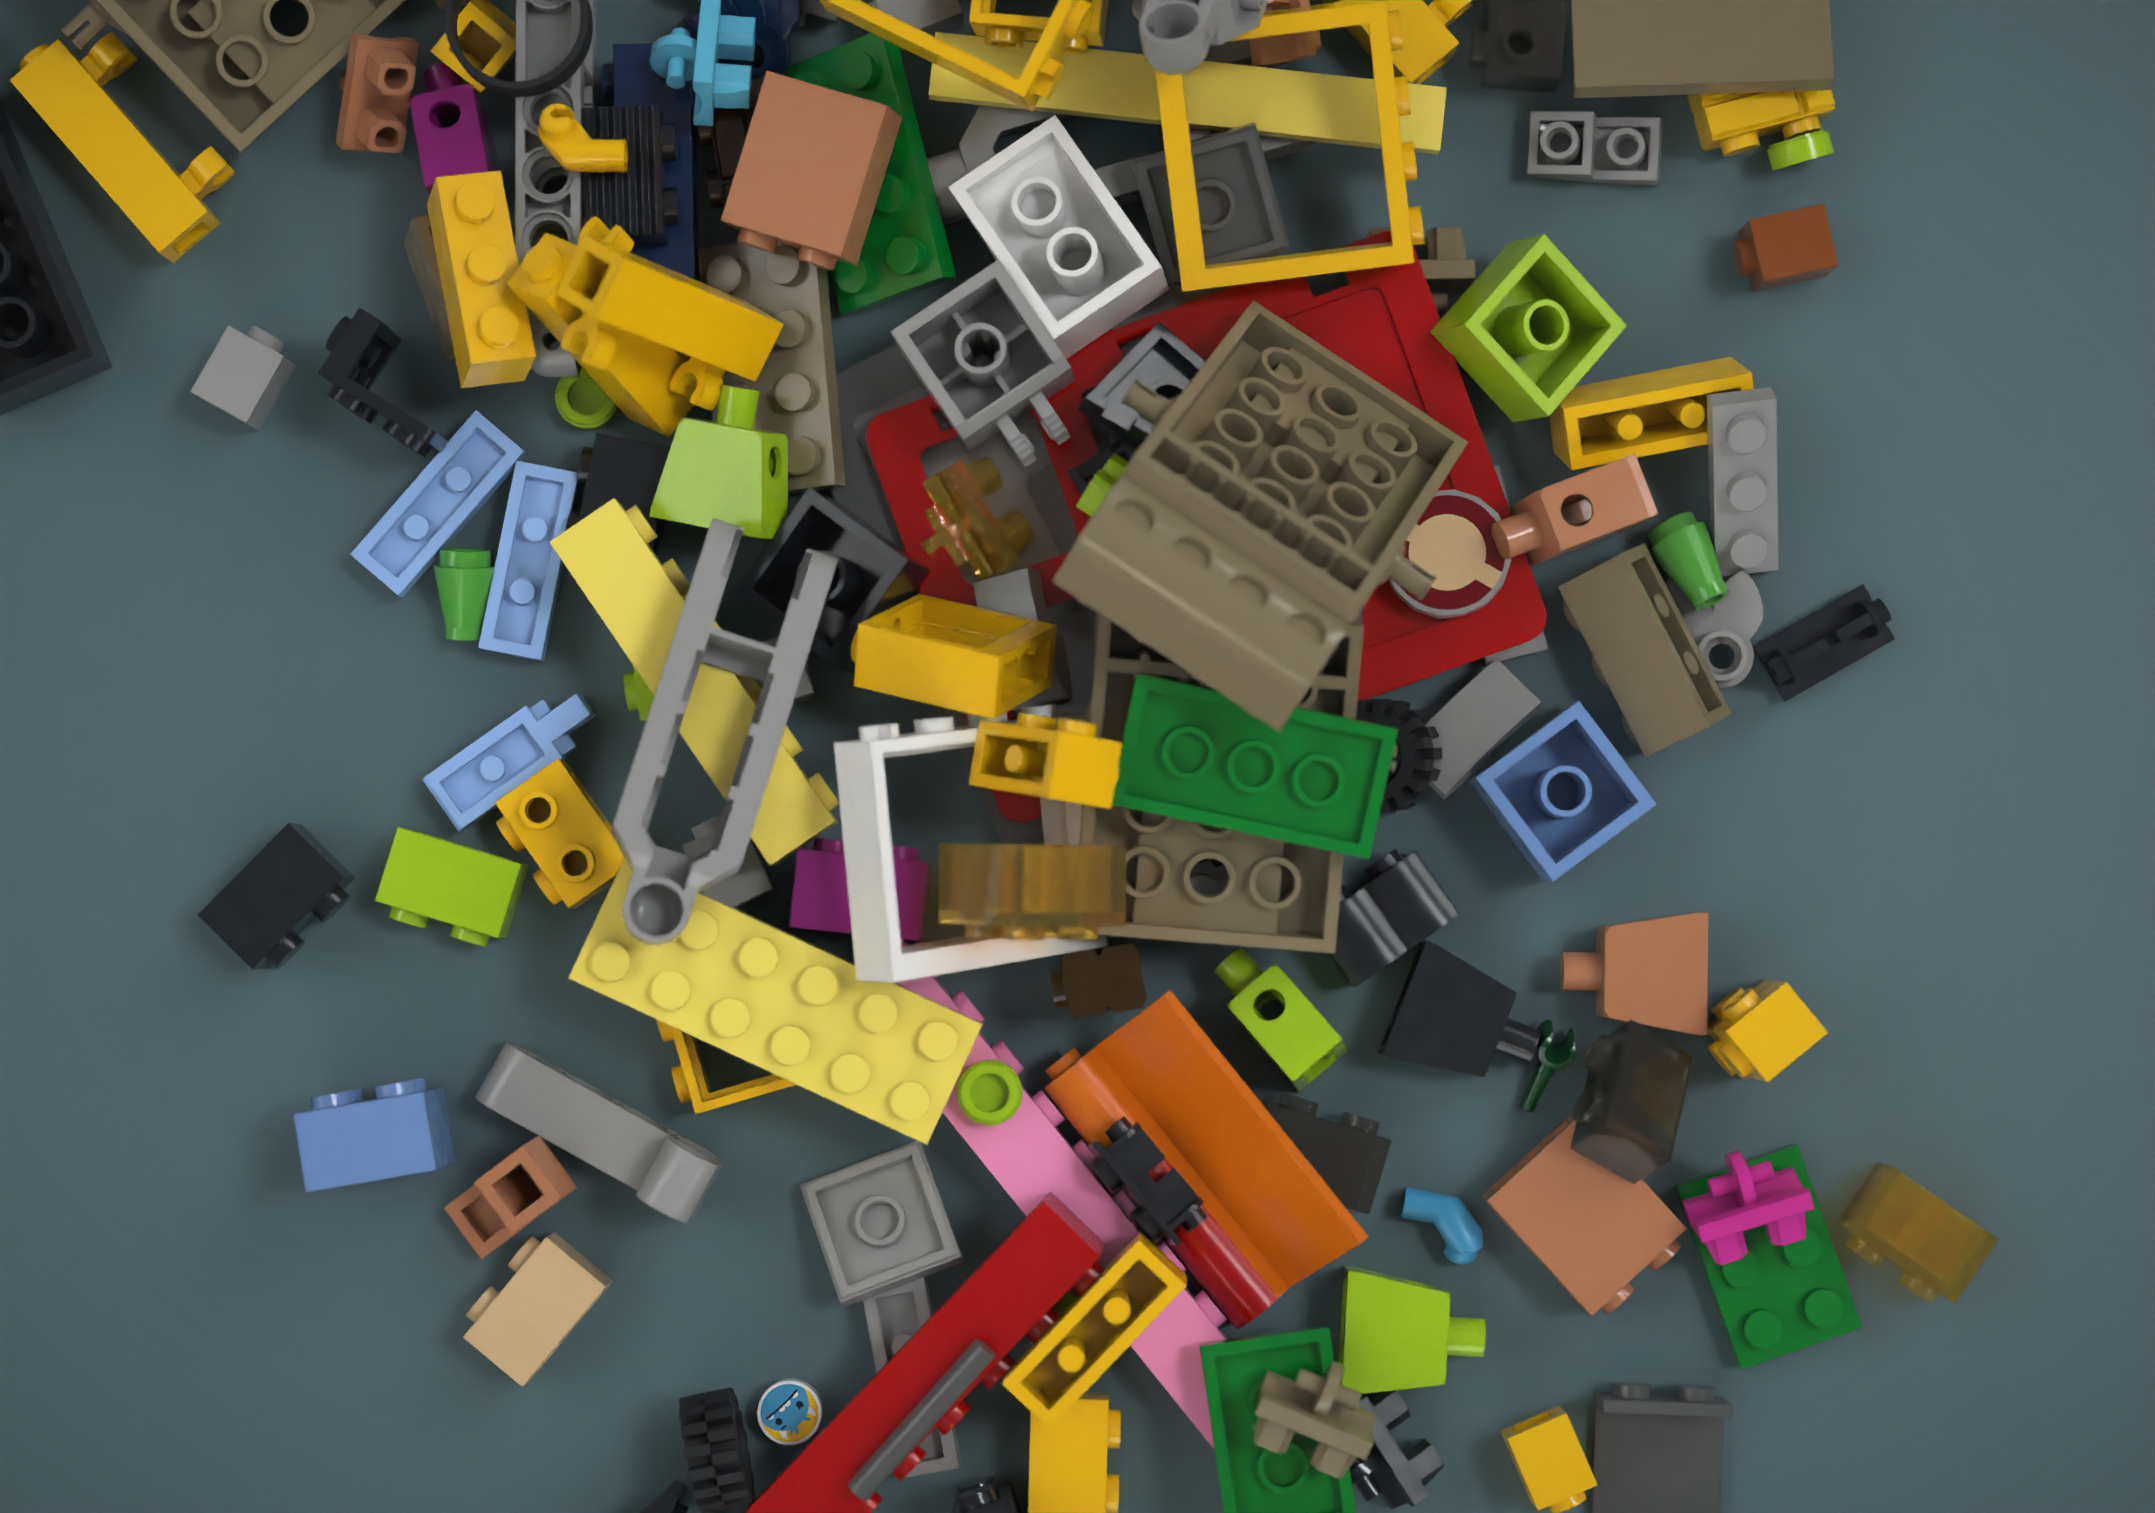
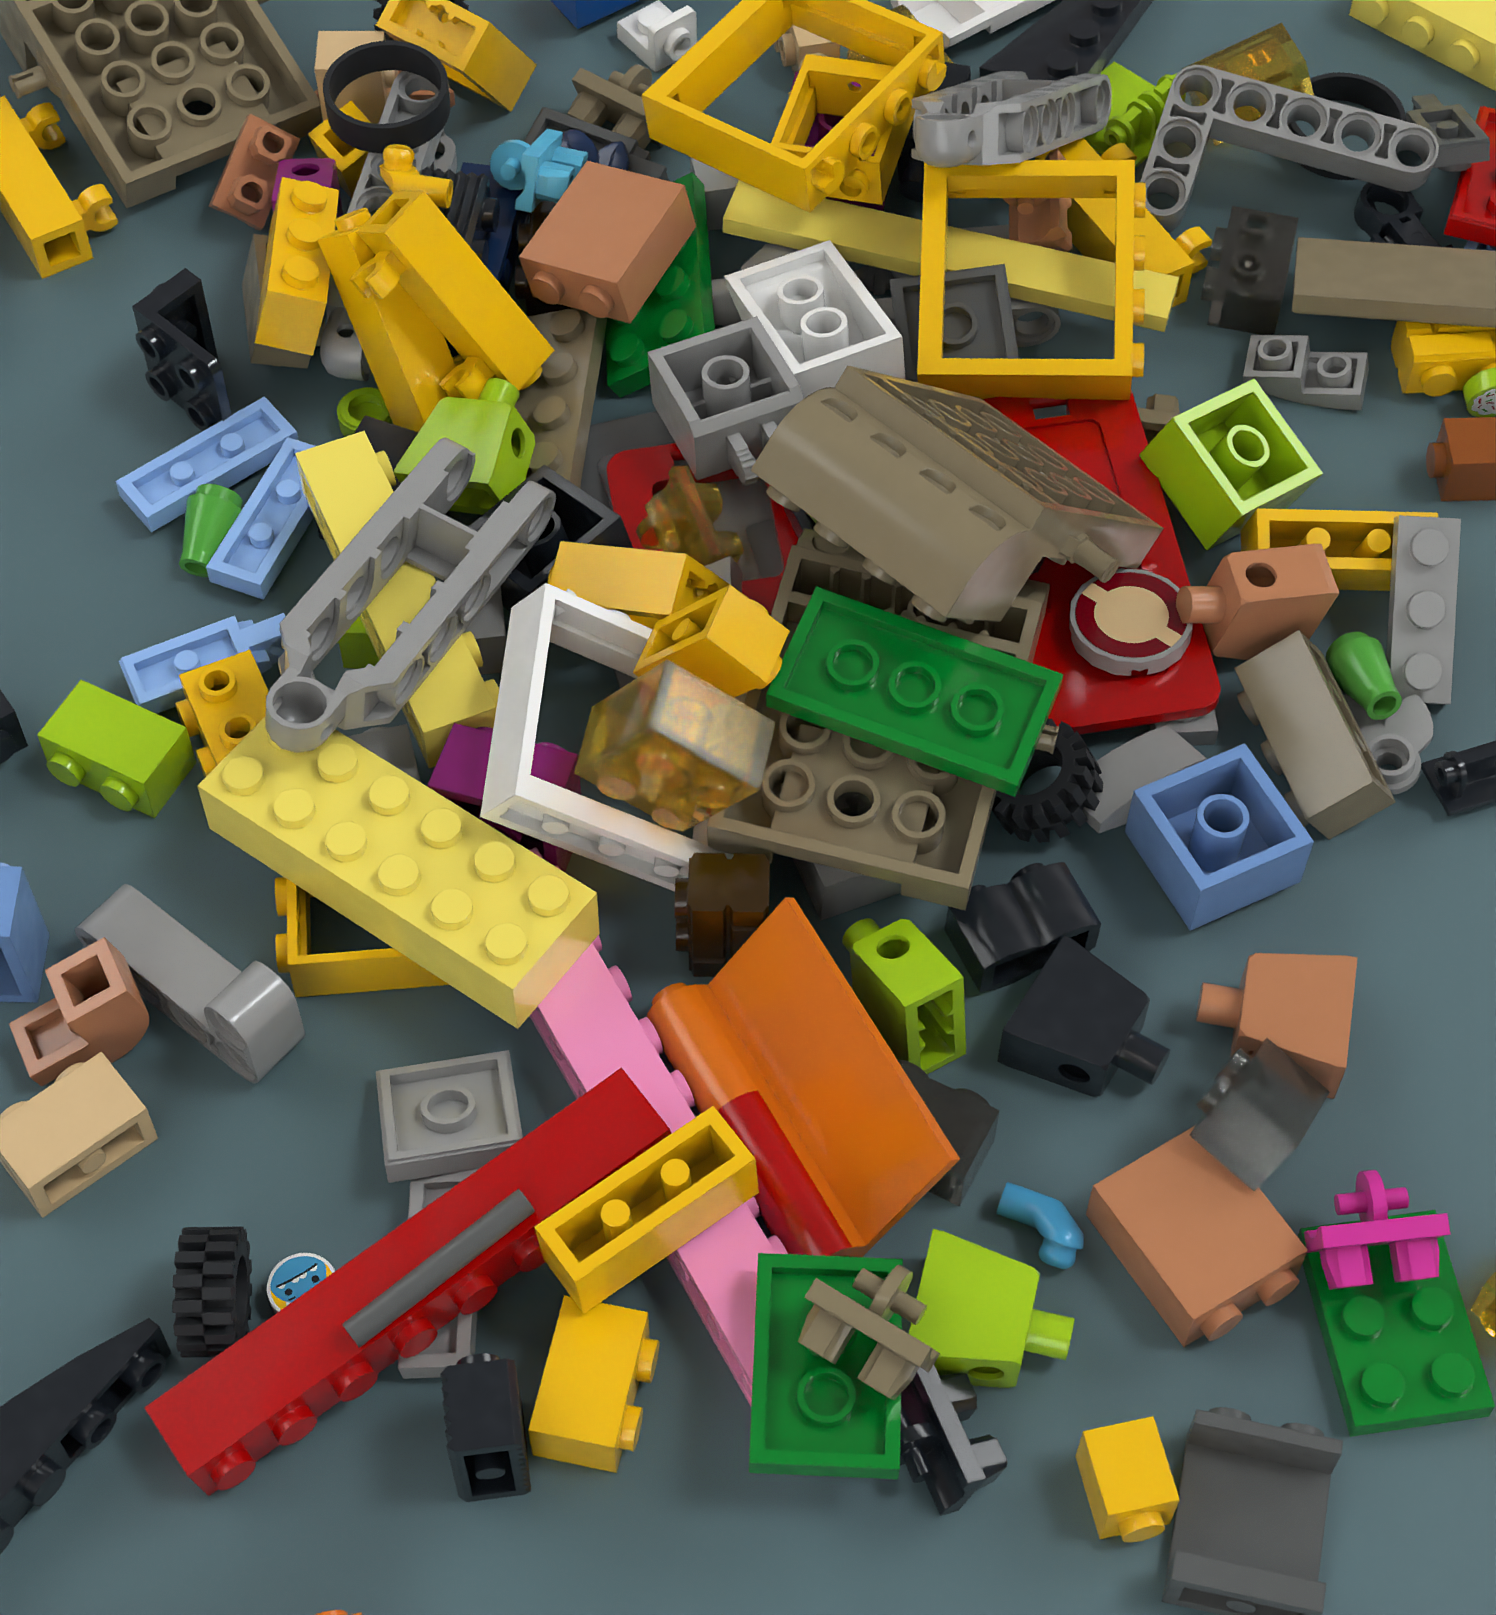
camera: 15 degrees right, 30 degrees down
(245, 375) = (70, 347): light grey brick -> none
(989, 1092) = (590, 989): lime tile -> none
(1159, 1204) = (715, 1076): black hinge -> none
(1550, 1059) = (1170, 1096): dark green hand -> none
(1762, 1030) = (1407, 1072): yellow brick -> none

